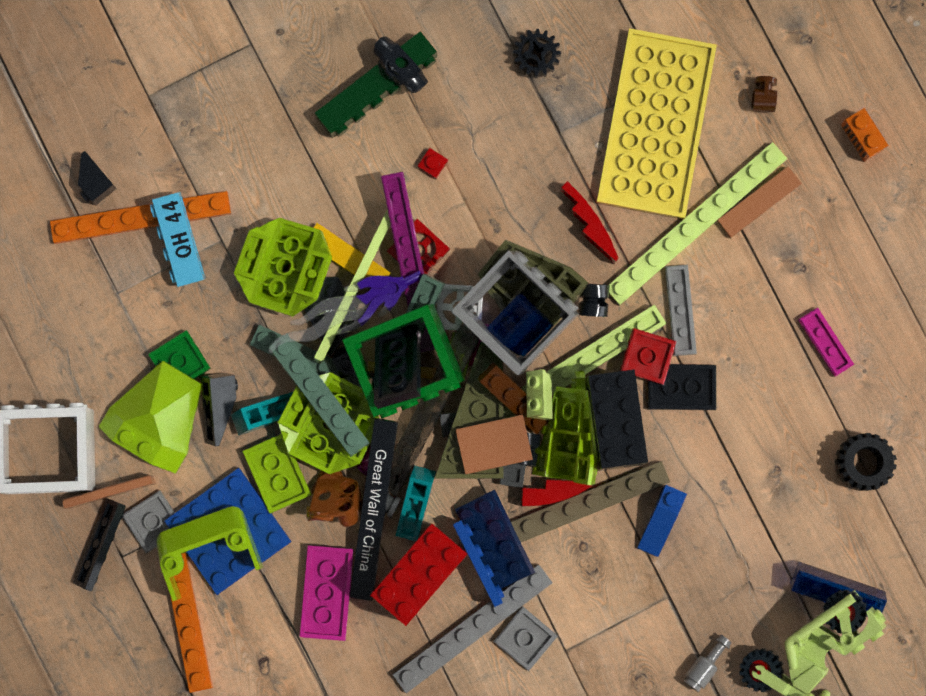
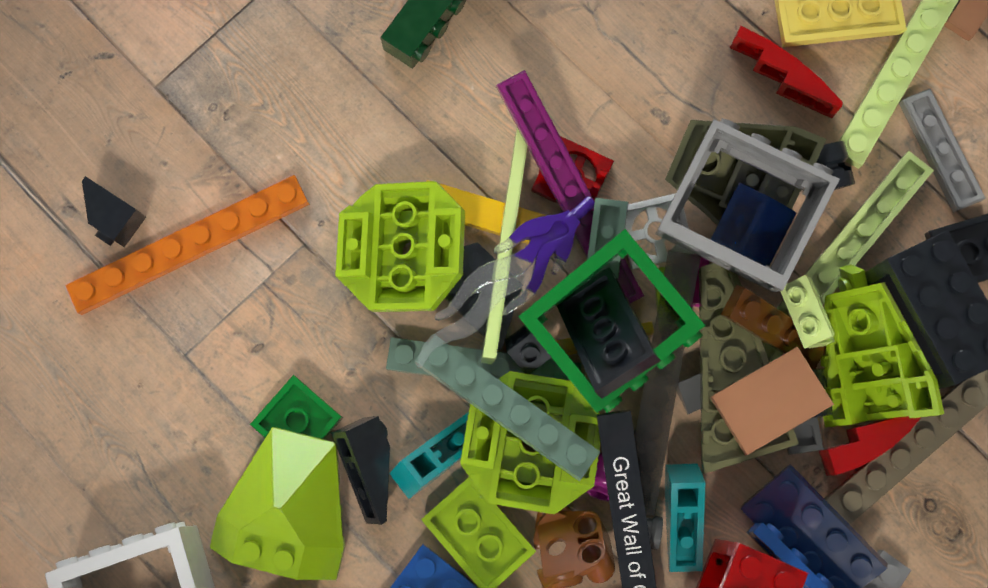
camera: 15 degrees left, 5 degrees down
(178, 239) = (246, 255): medium azure brick -> none
(432, 163) = (554, 60): red plate -> none
(648, 355) = (924, 214): red plate -> none

